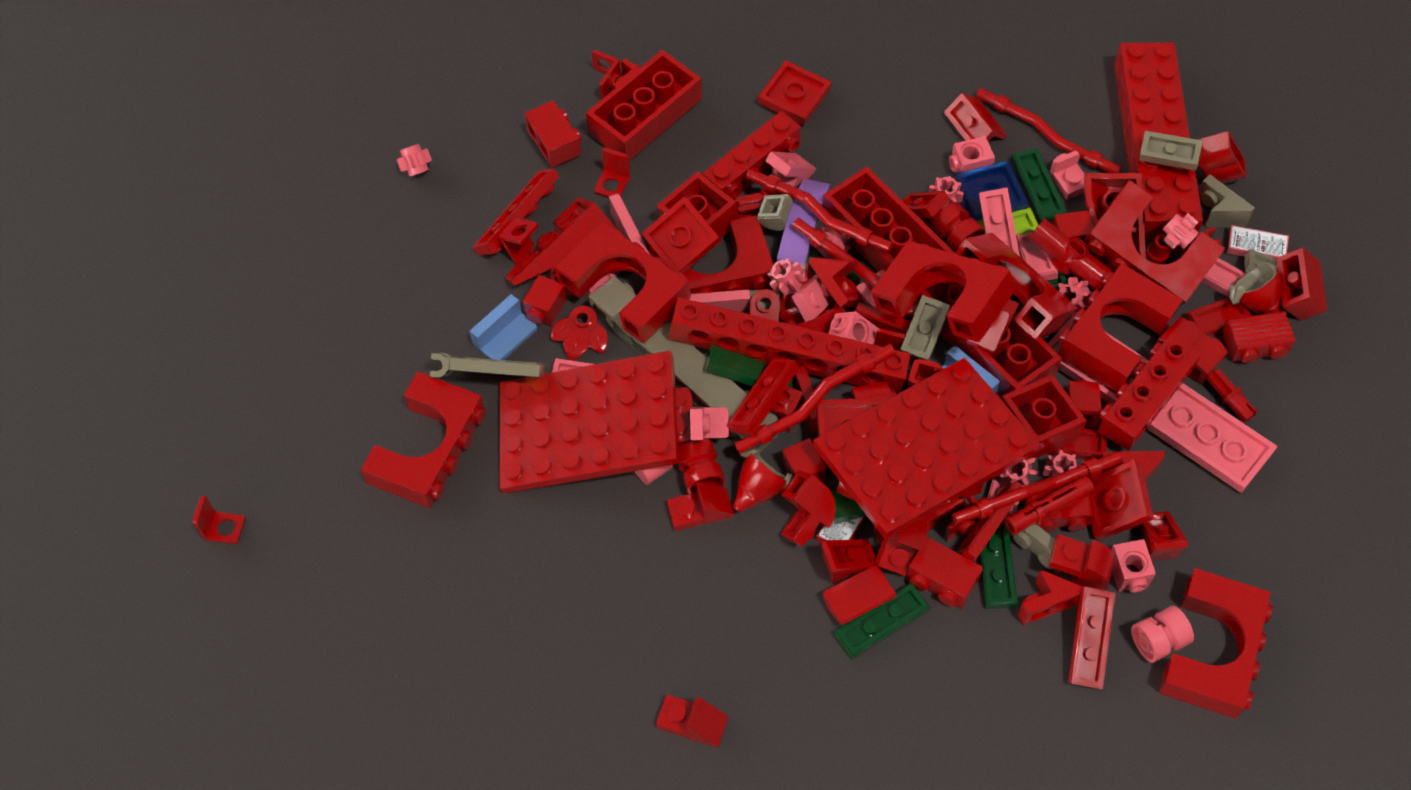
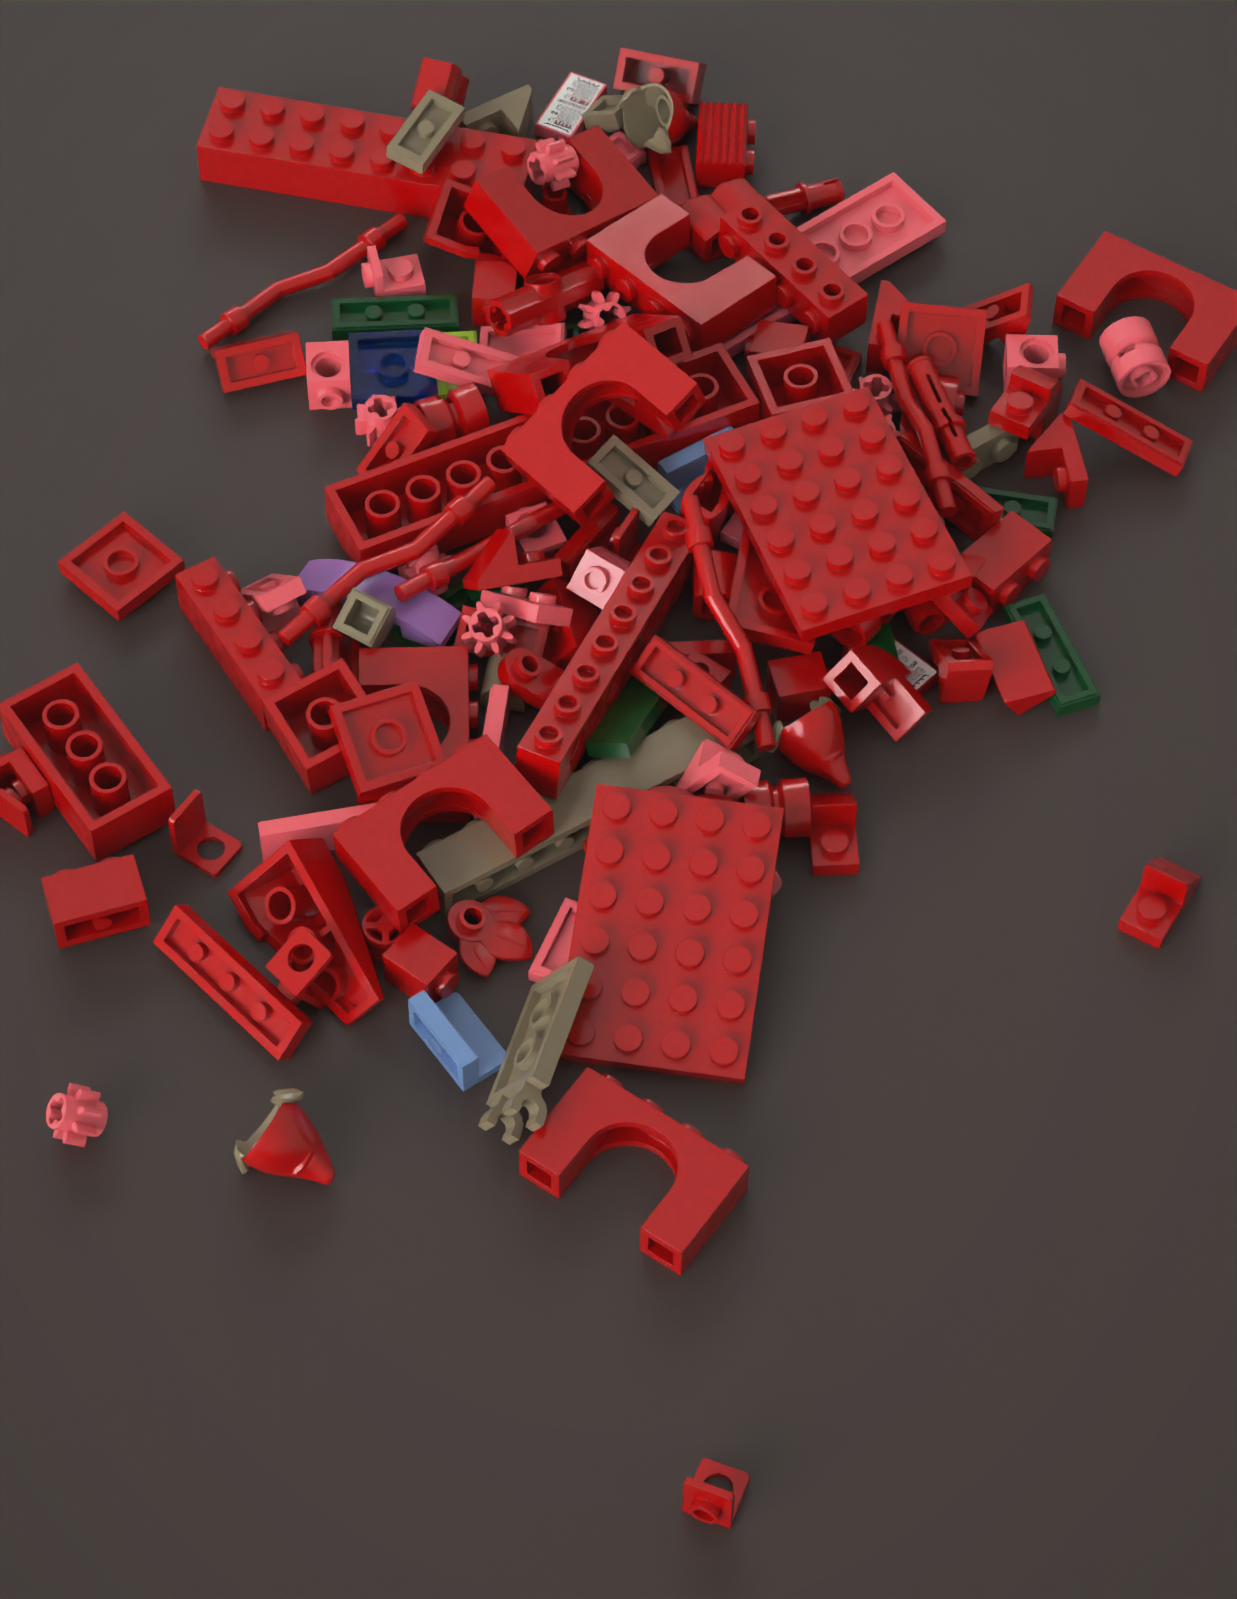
camera: 80 degrees left, 5 degrees down
(410, 259) = (286, 1143): none -> red hat

